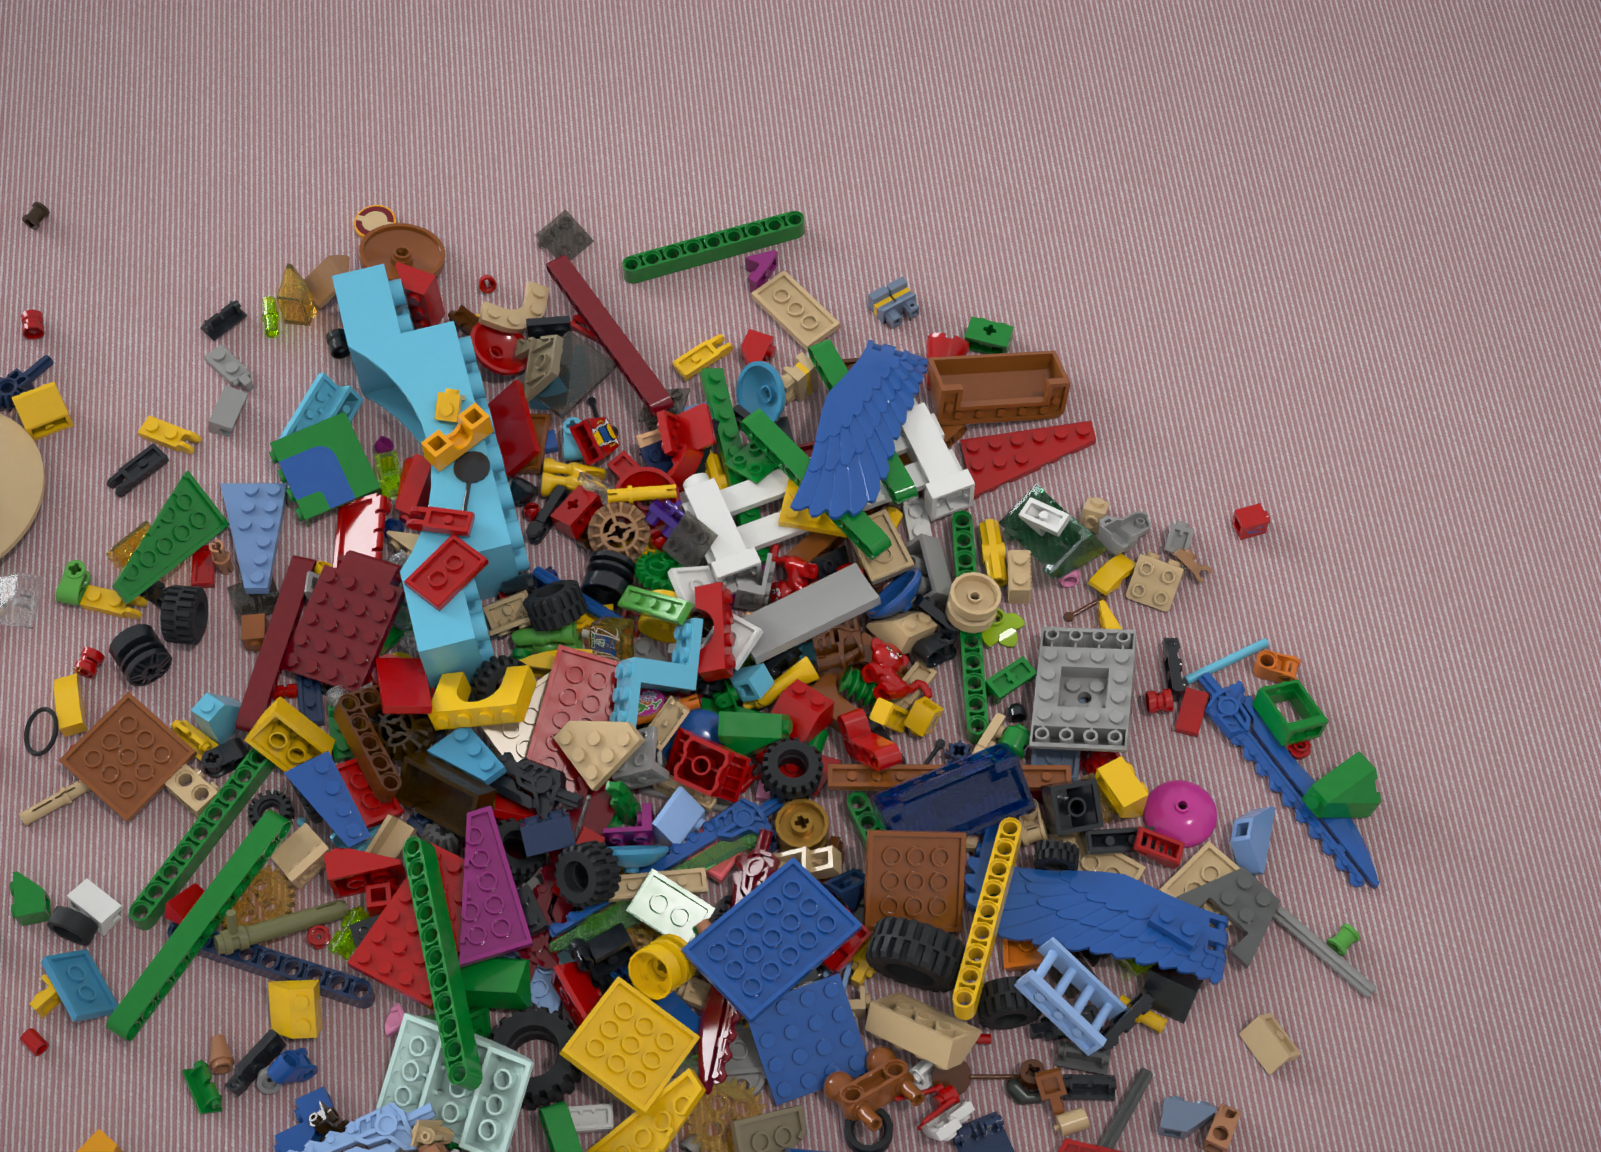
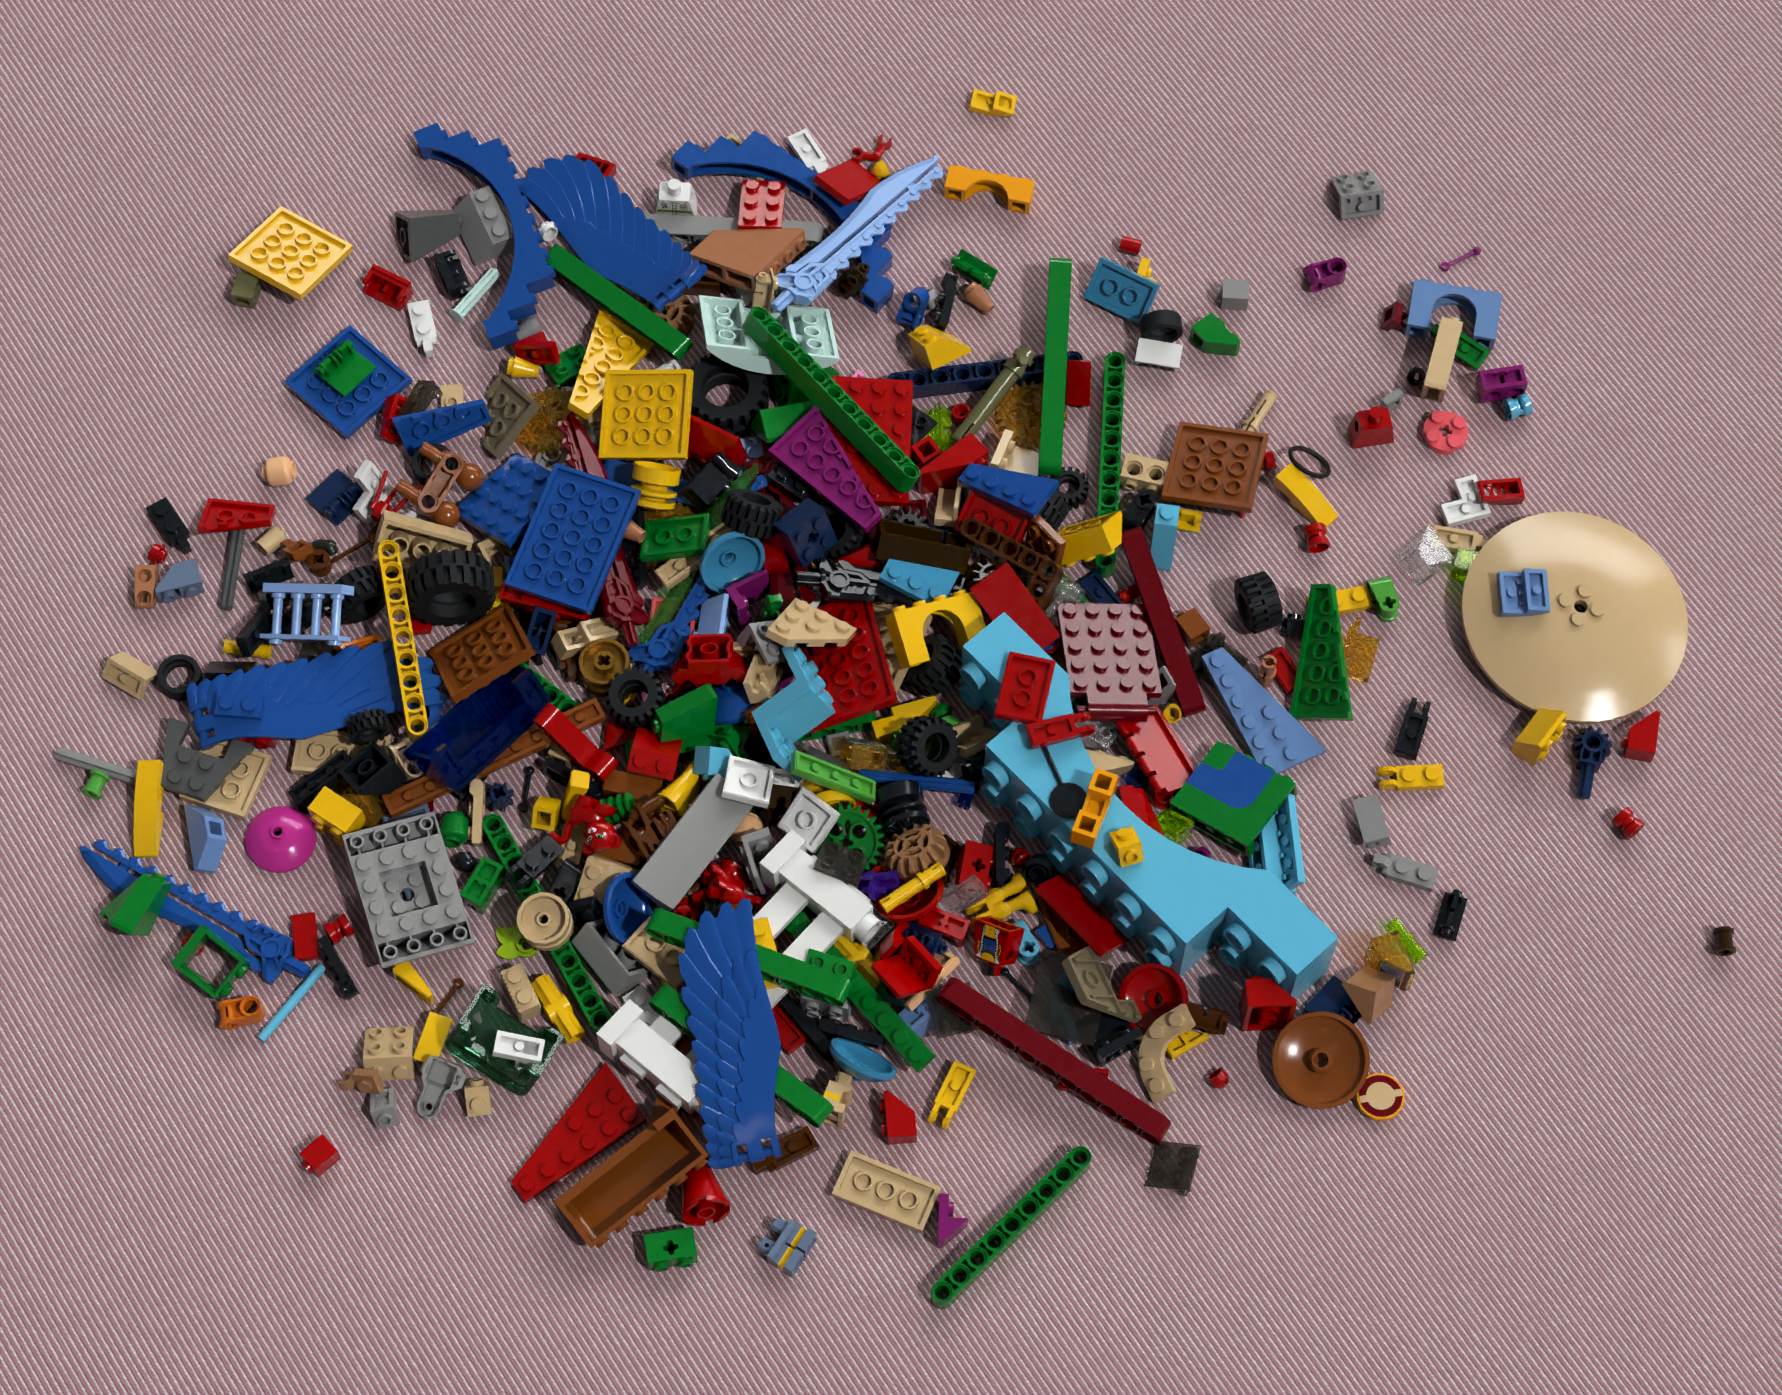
camera: 150 degrees right, 5 degrees up
(140, 654) = (1272, 555): black wheel -> none
(332, 740) = (1045, 540): none -> dark orange tile
(716, 657) = (776, 794): red arch -> none
(957, 669) = (535, 861): none -> black hinge
(1174, 845) = (271, 785): red slope -> none
(1234, 1000) = (171, 663): none -> black tyre
(1299, 889) = (147, 809): none -> yellow slope

